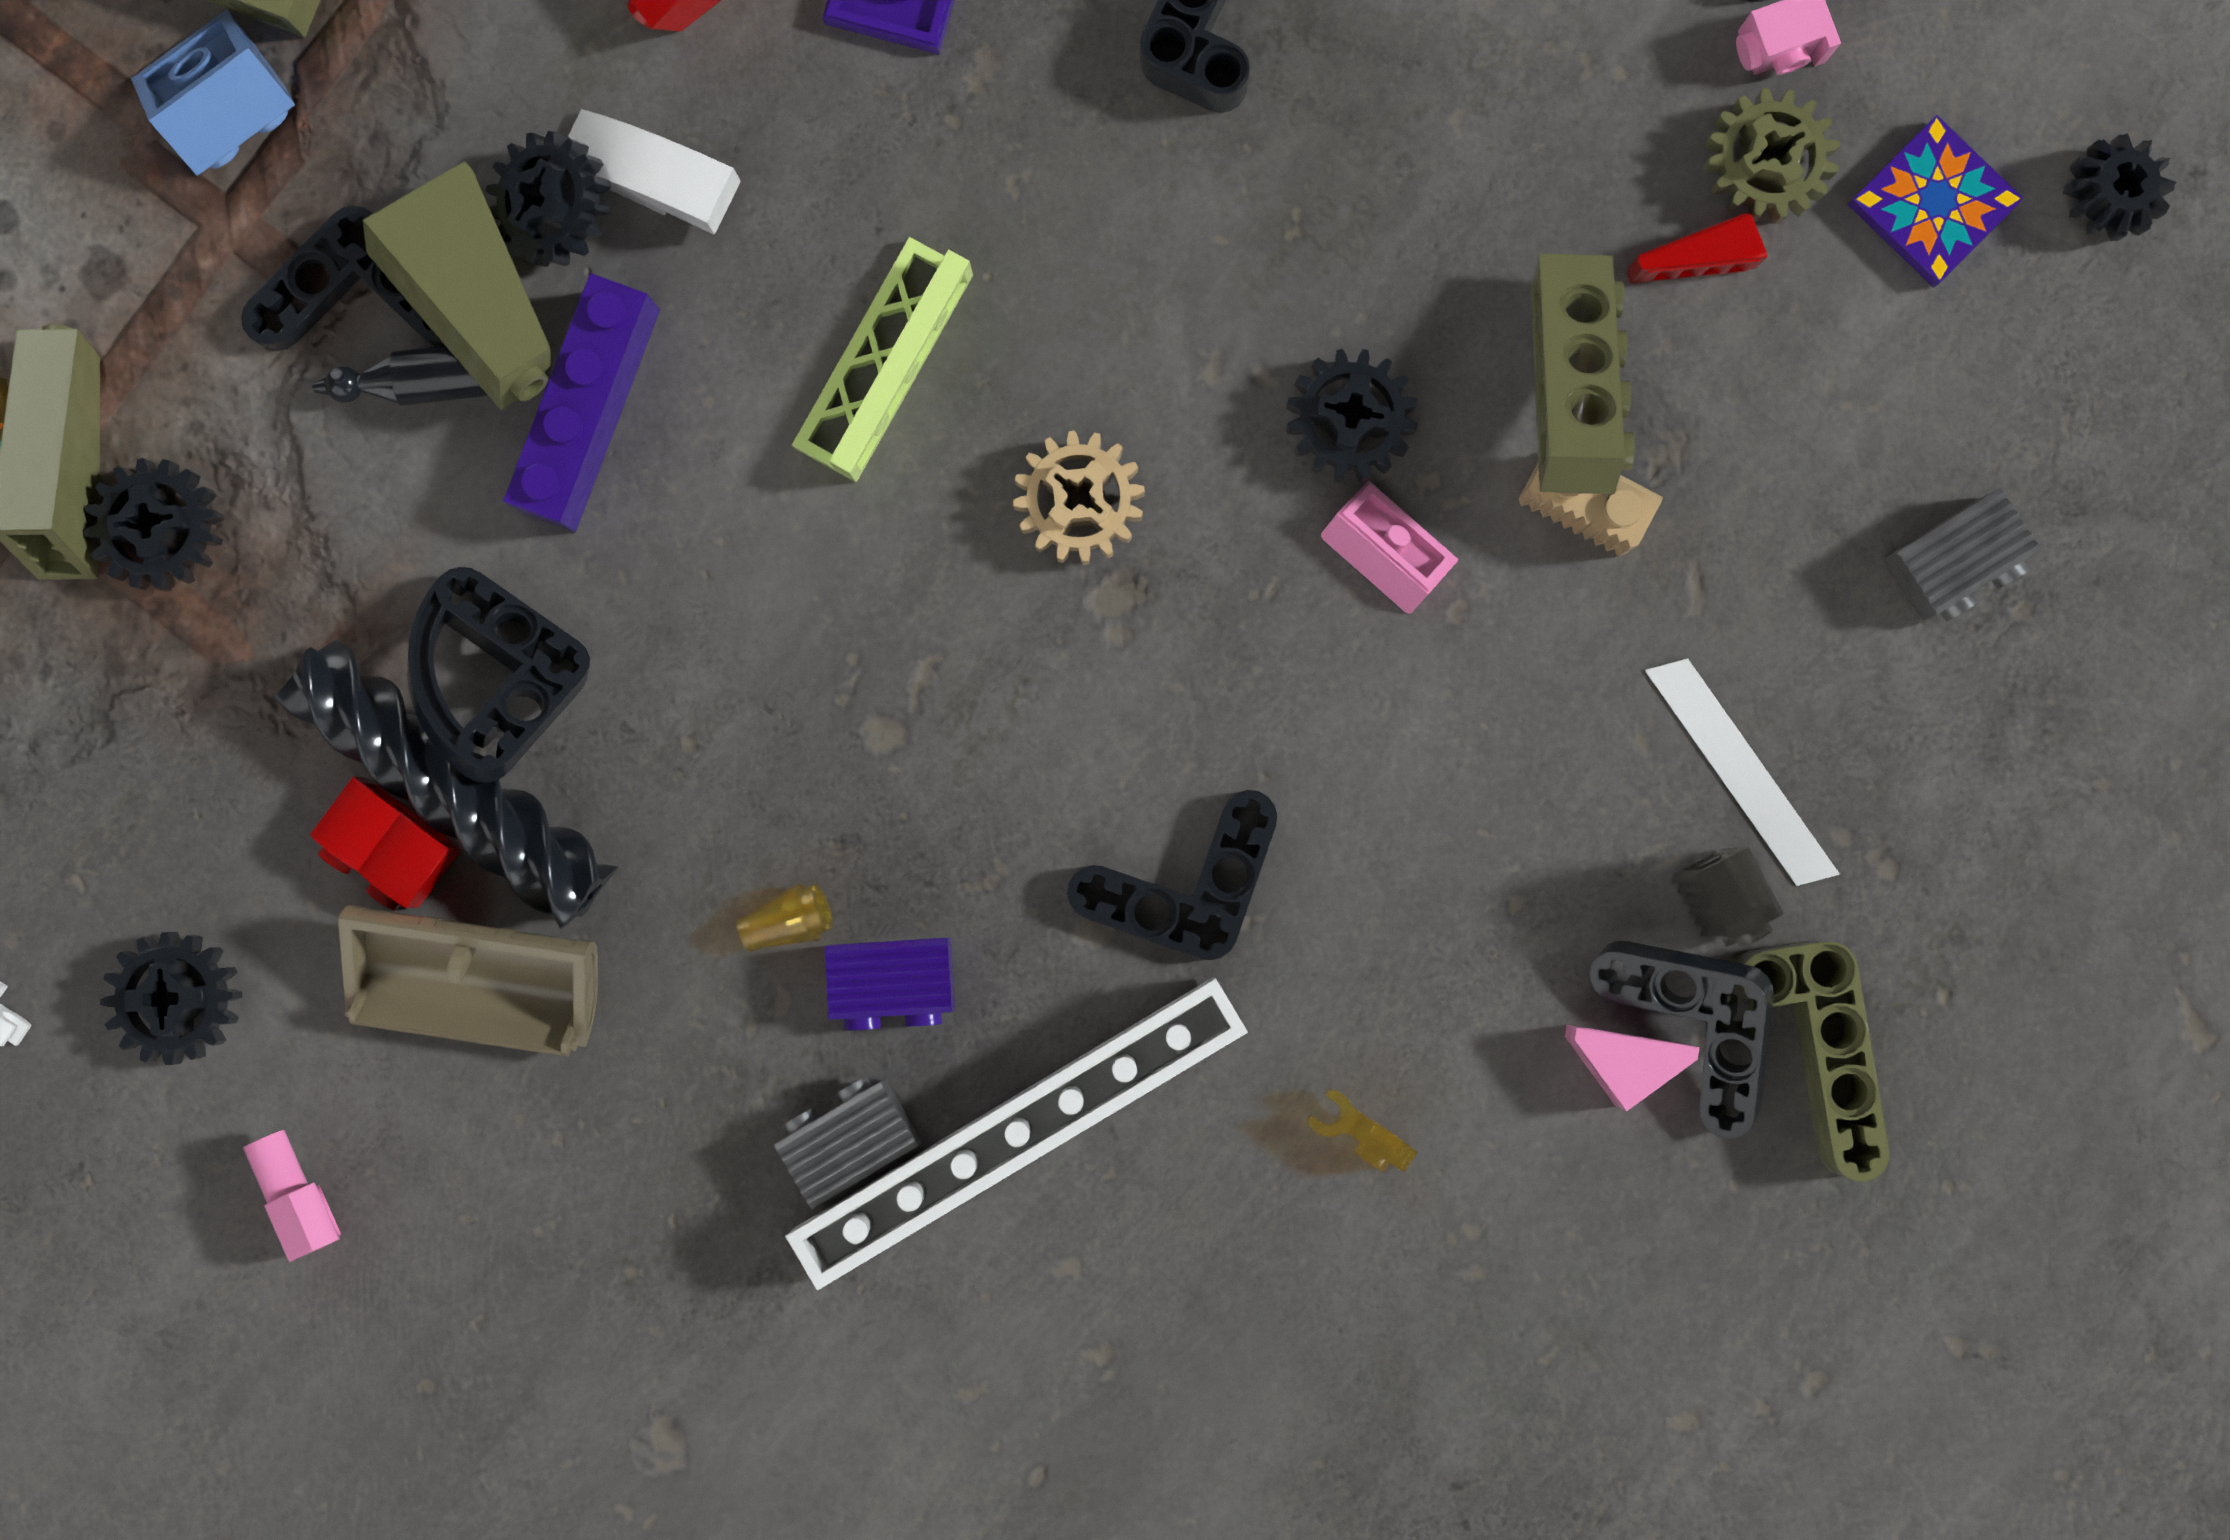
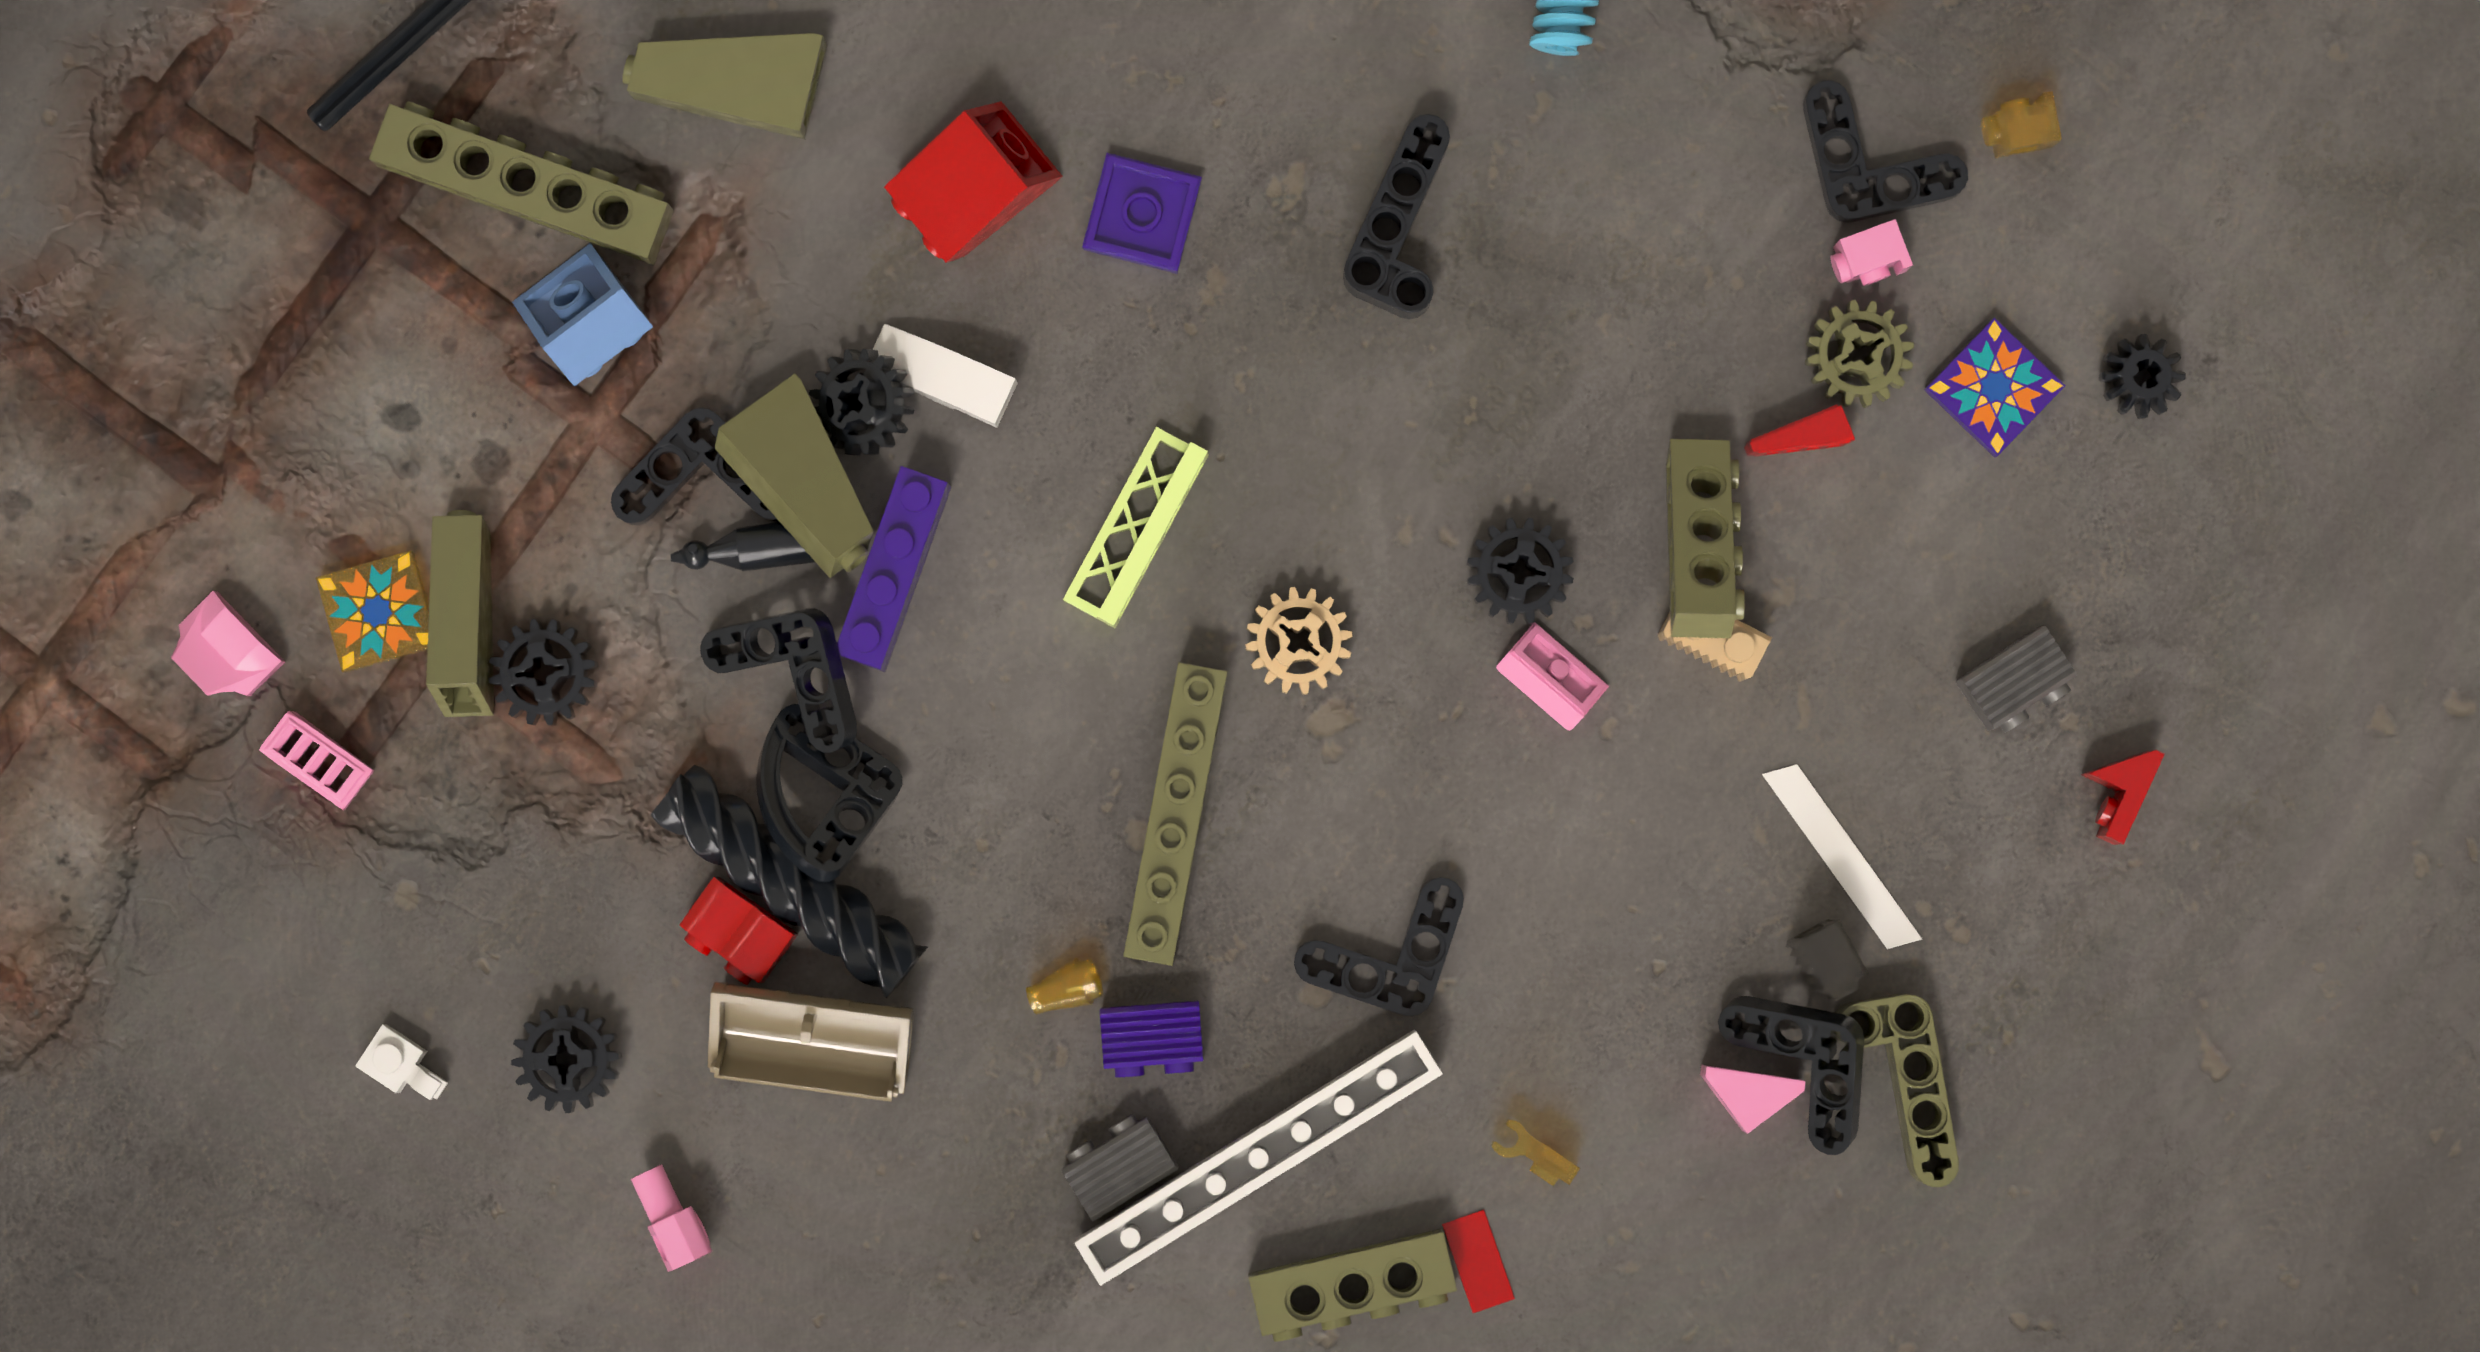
camera: 10 degrees left, 0 degrees up
(465, 506) = (803, 656): none -> black beam
(923, 706) = (1175, 814): none -> olive brick
(1047, 1334) = (1423, 1251): none -> olive brick
(1289, 1263) = (1478, 1261): none -> red sticker
(2102, 688) = (2131, 781): none -> red slope

